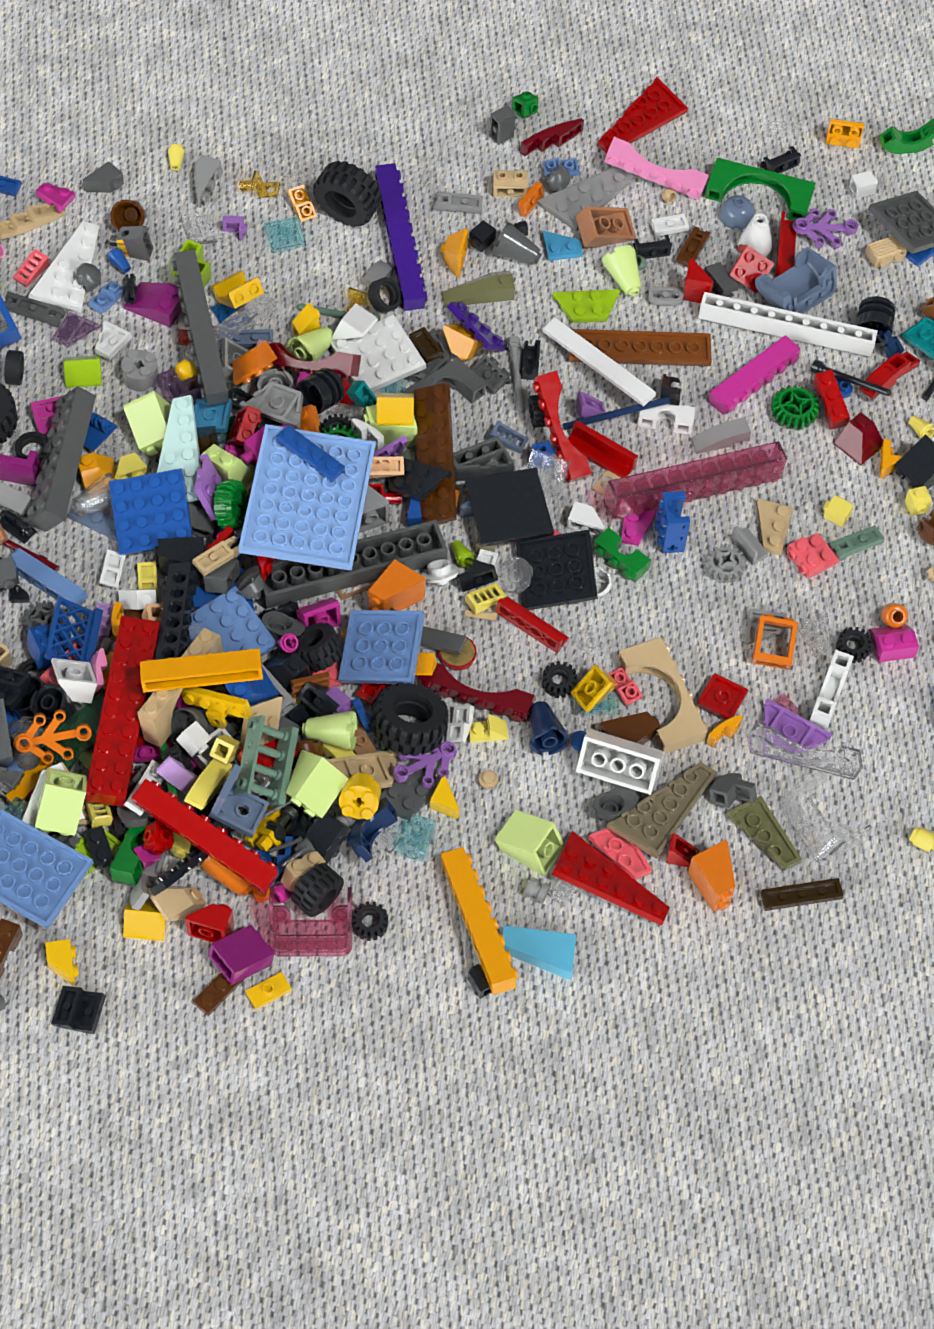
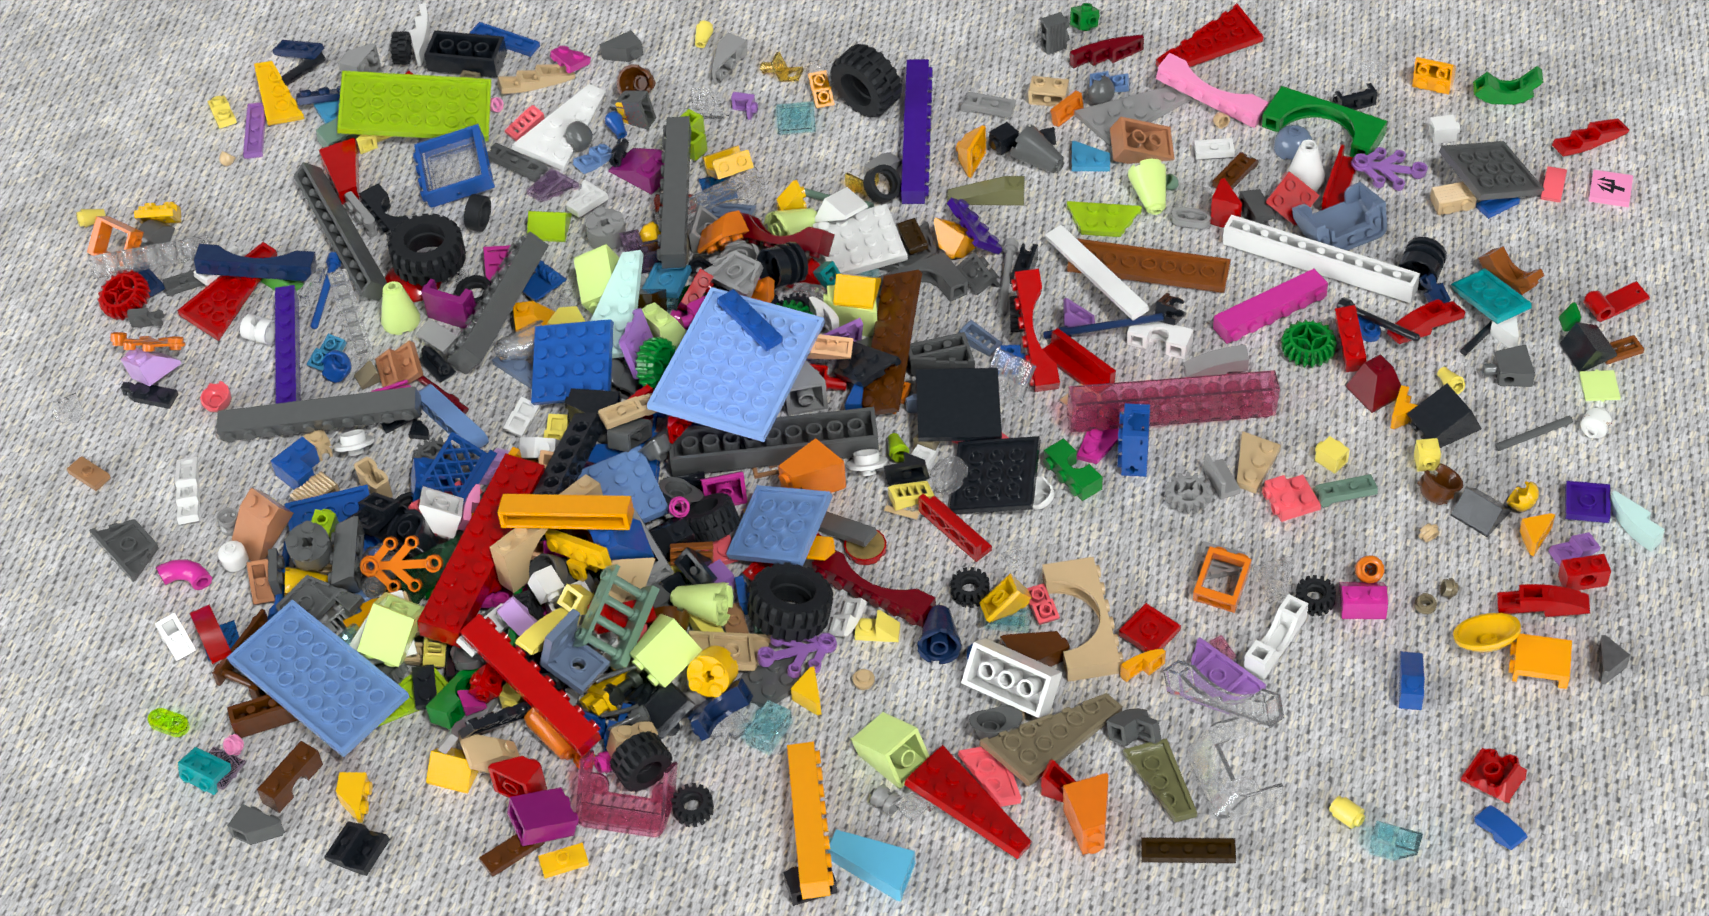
camera: 20 degrees right, 10 degrees down
(585, 518) = (1042, 425): white slope -> none
(653, 249) = (1189, 170): black hinge -> none

